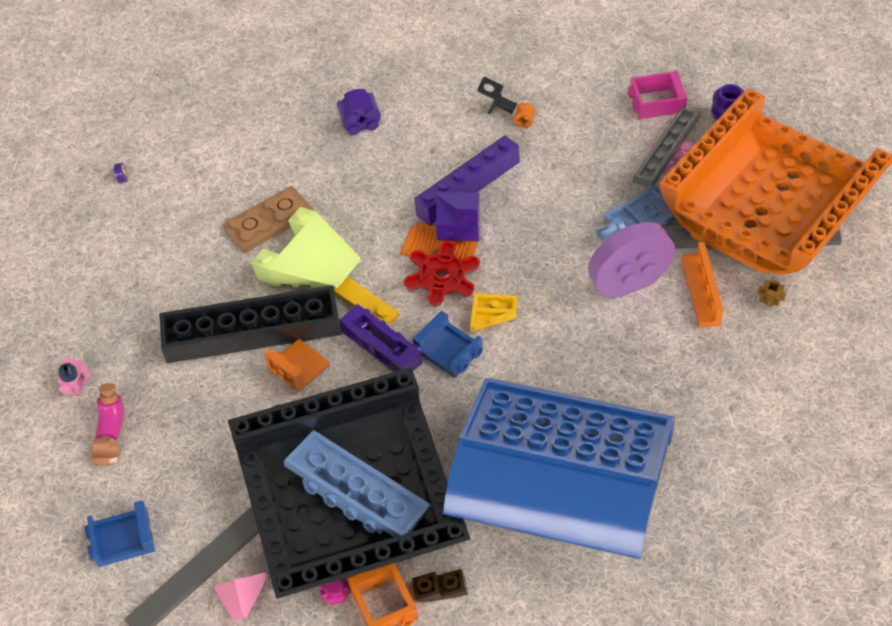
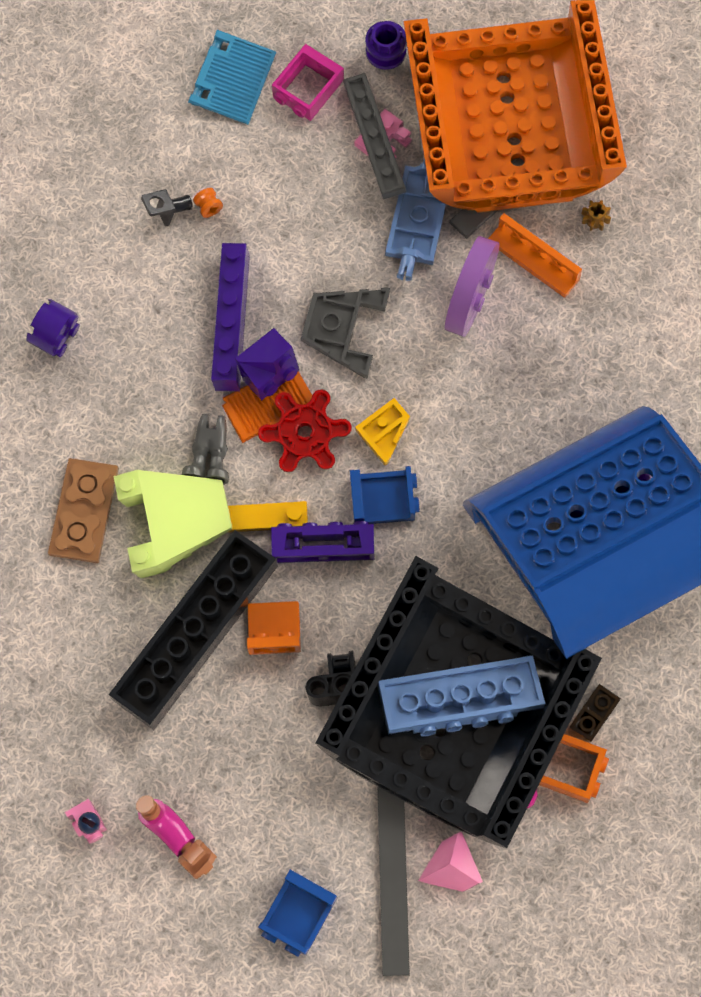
camera: 45 degrees left, 20 degrees up
(378, 238) = (209, 442): none -> dark grey piece
(530, 228) = (332, 324): none -> dark grey wing
(614, 64) = (232, 77): none -> dark azure window

